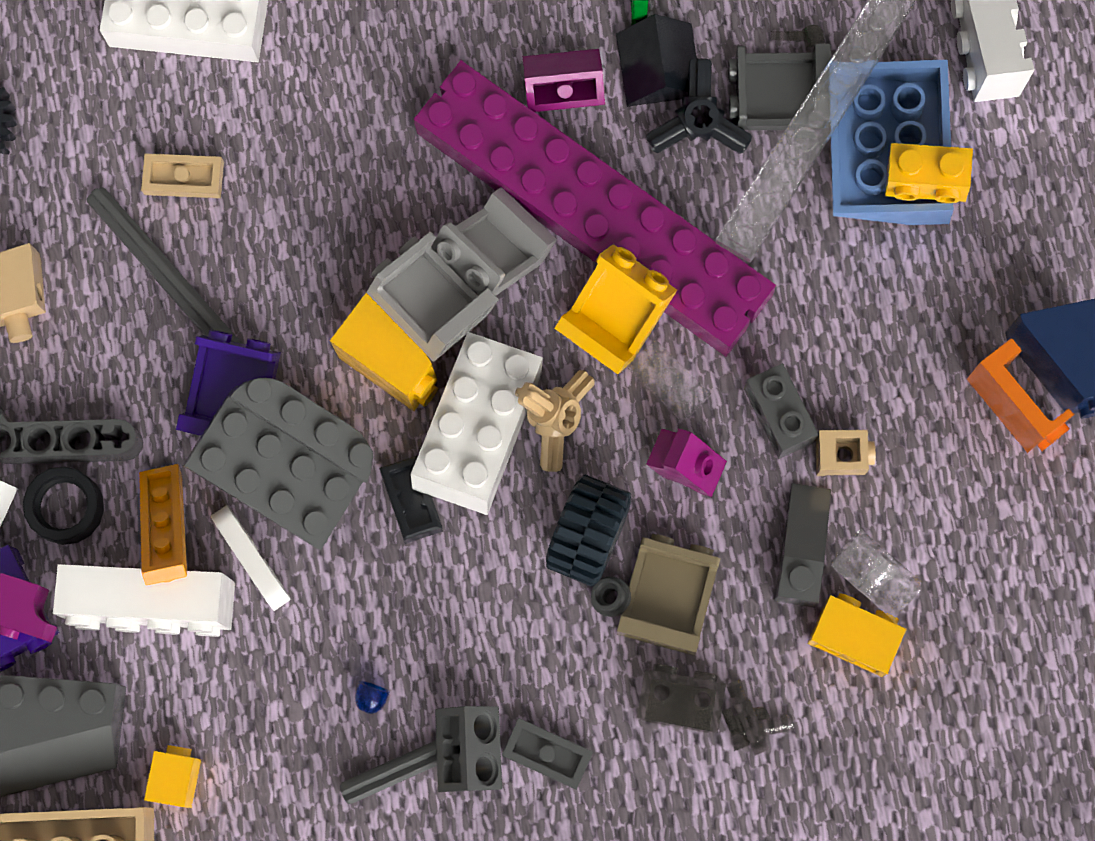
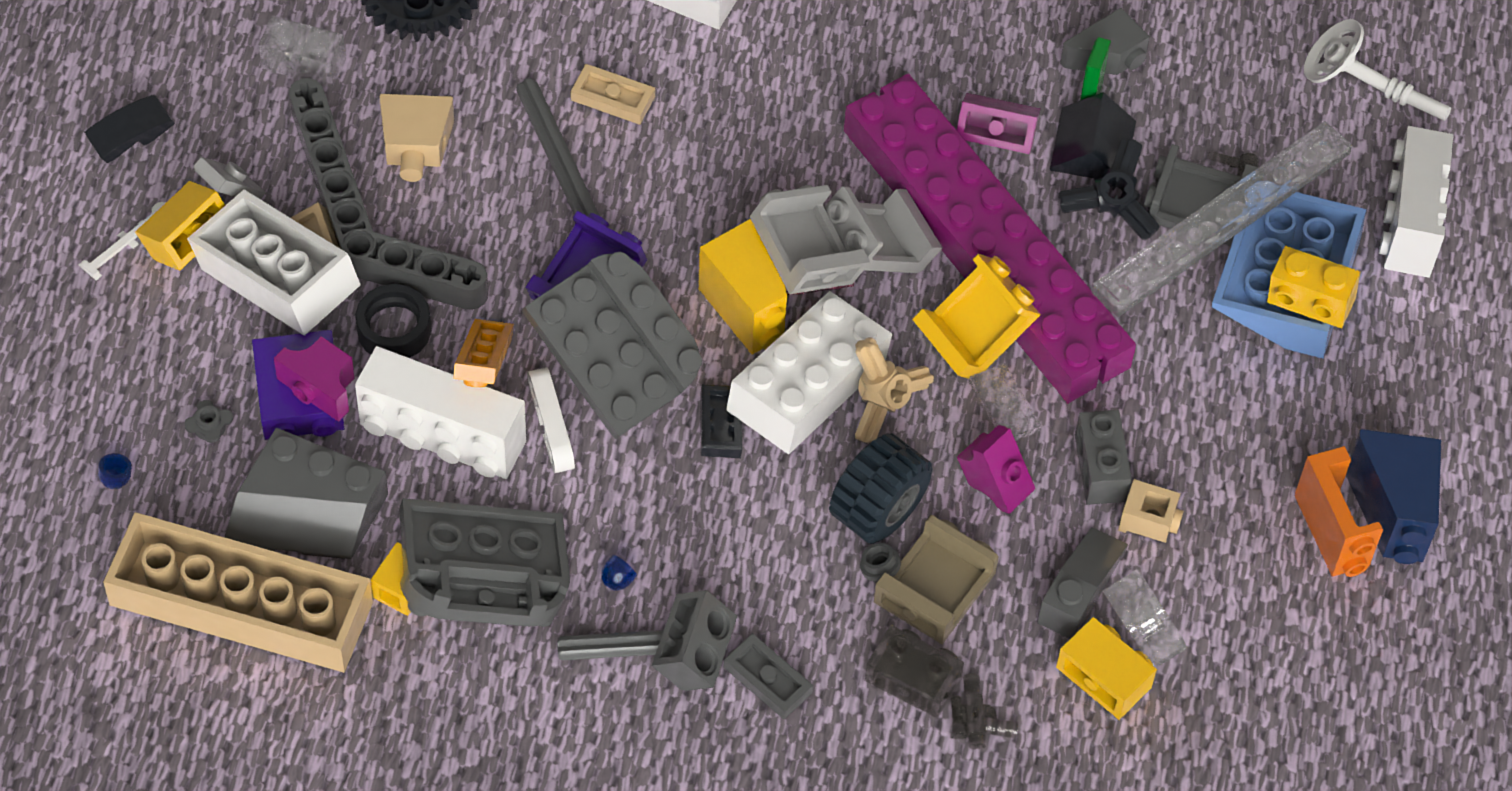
camera: 10 degrees right, 20 degrees down
(242, 740) = (483, 563): none -> dark grey plate

